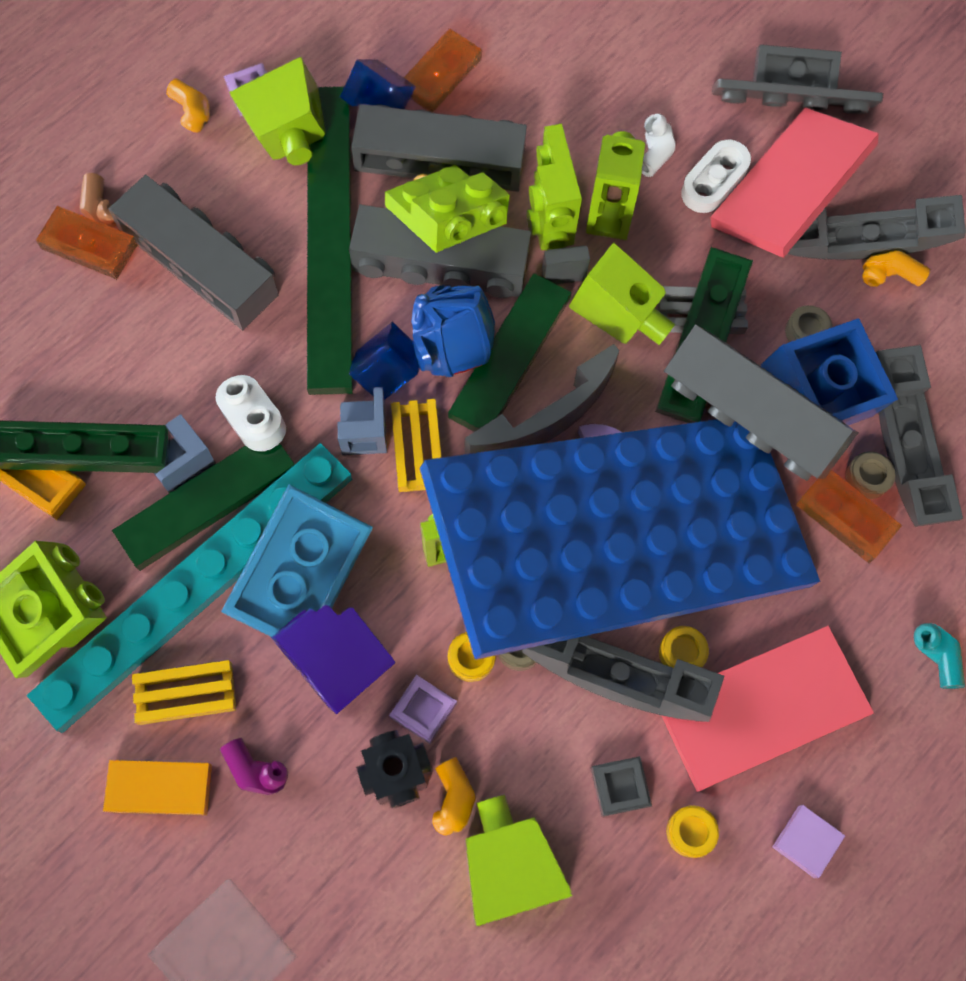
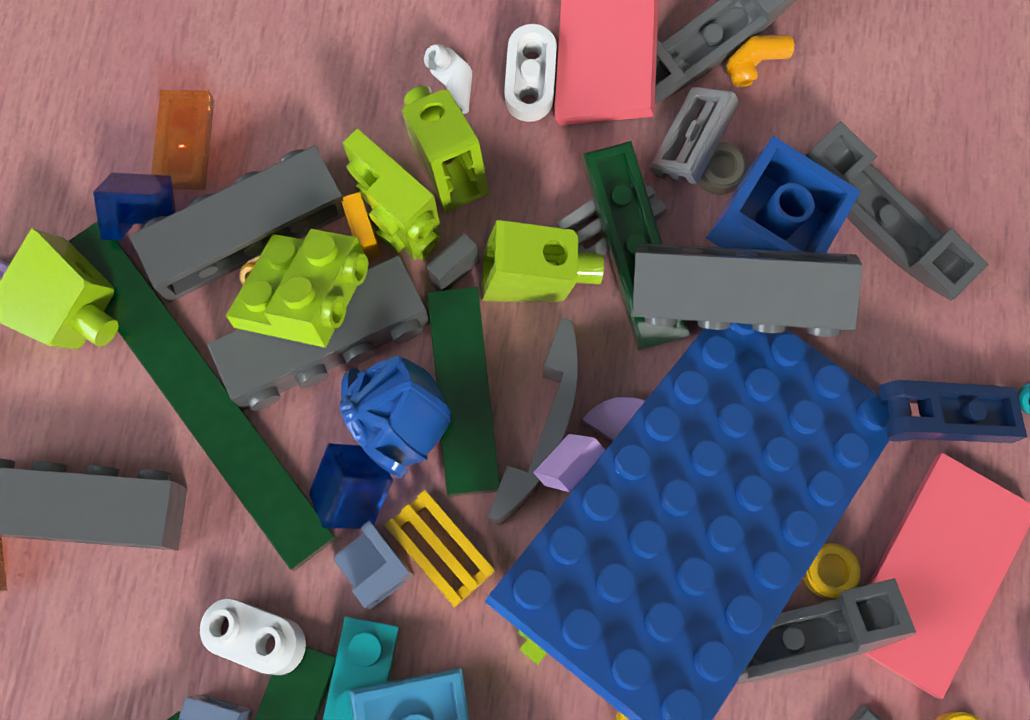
camera: 30 degrees left, 5 degrees up
(519, 199) = (360, 224): none -> light orange tile
(546, 434) = (569, 462): none -> lavender tile
(805, 291) = (701, 135): none -> light grey tile
(849, 516) = (892, 333): clear orange plate -> none
(856, 599) = (952, 412): none -> dark blue plate
(871, 474) = (880, 276): dark tan tile -> none

